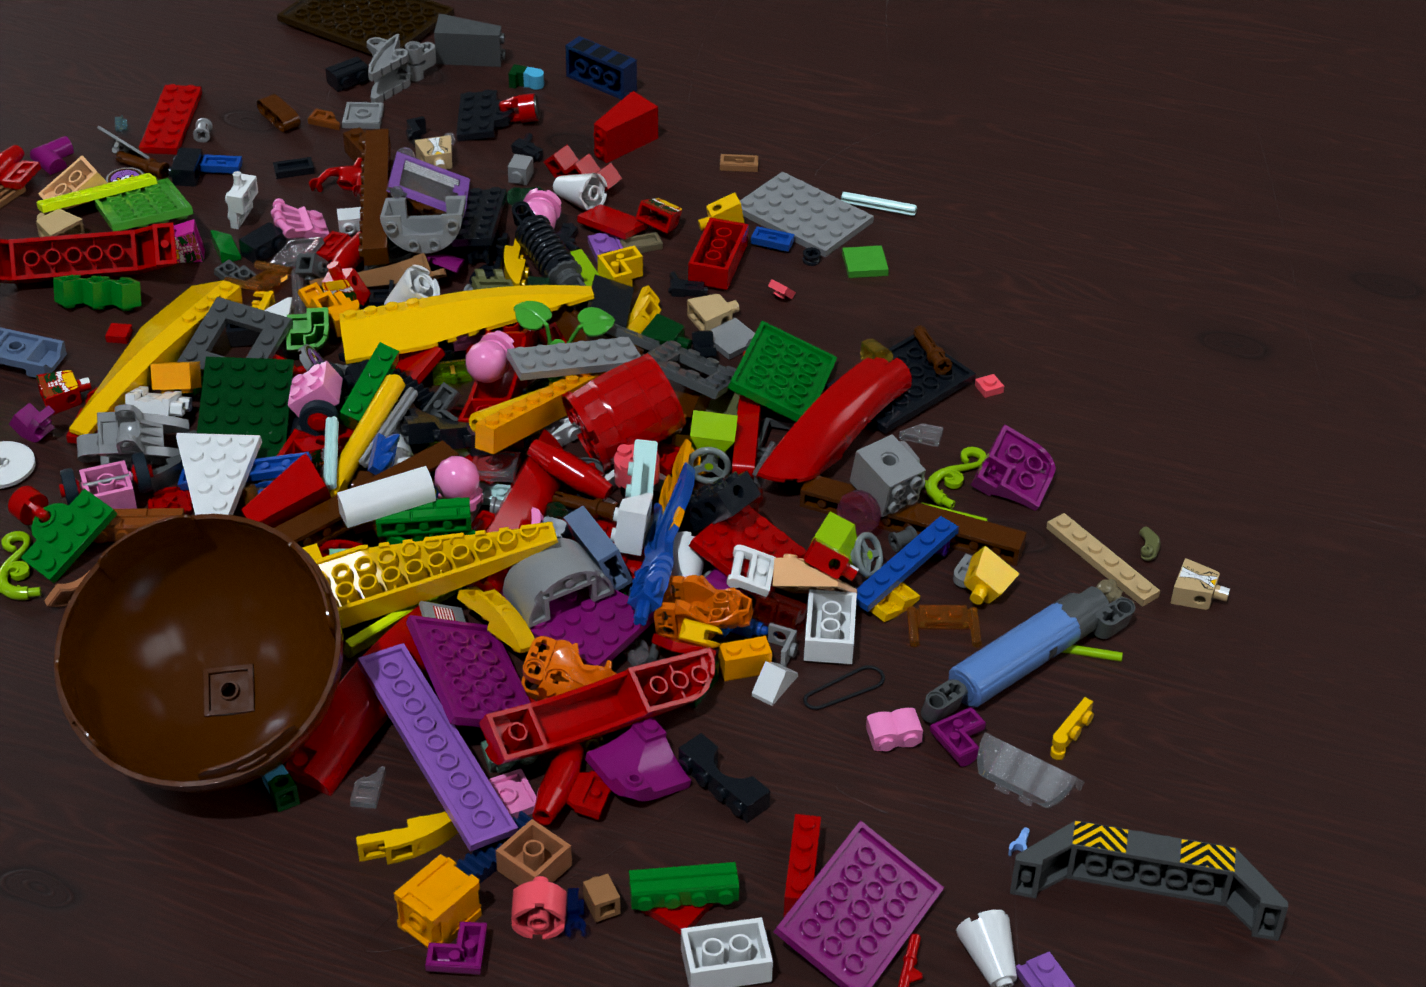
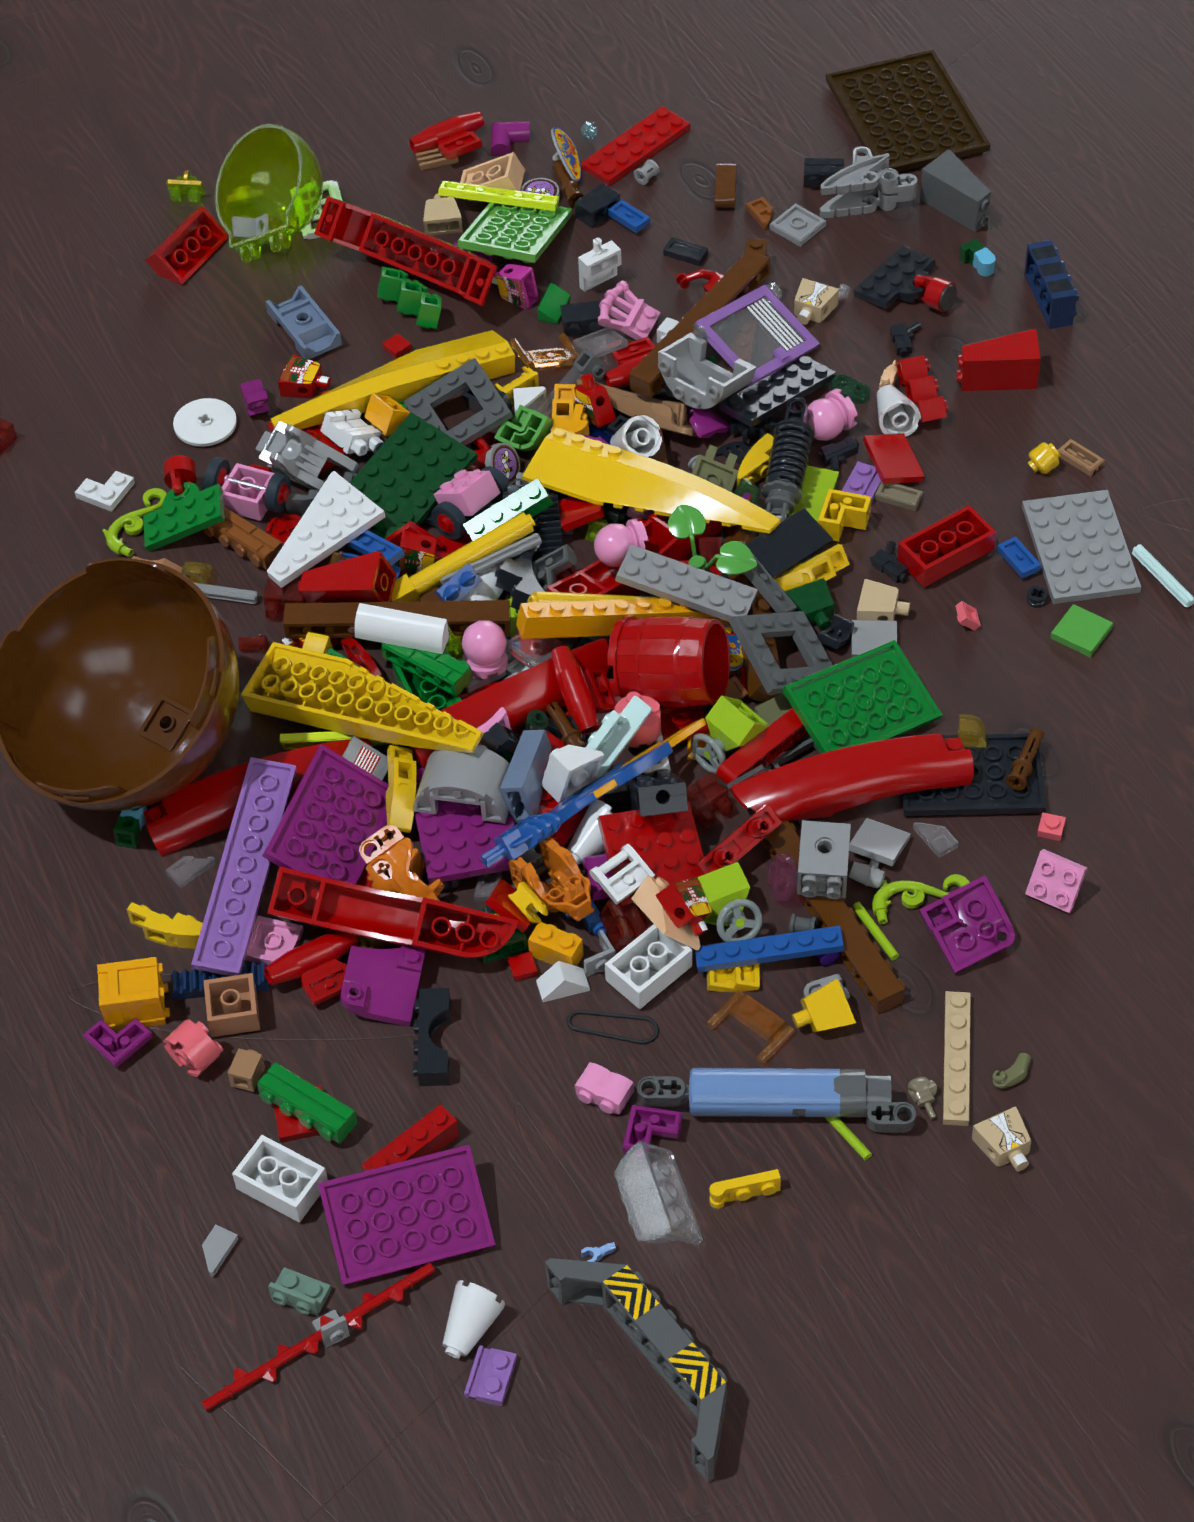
camera: 45 degrees right, 10 degrees up
(229, 269) = (534, 335): dark grey slope -> none
(331, 452) = (421, 559): light aqua axle -> none
(415, 128) = (822, 263): black bracket -> none
(520, 169) = (869, 358): light grey brick -> none
(548, 176) = (889, 375): none -> light nougat piece
(575, 908) = (218, 1068): clear blue plate -> none
(662, 215) = (938, 475): red torso -> none
(718, 172) = (1044, 458): none -> yellow head
(726, 208) = (995, 509): yellow torso -> none
(730, 689) = (522, 966): none -> red tile
(805, 506) = (740, 841): none -> red plate
(1040, 410) = (1056, 880): none -> bright pink plate

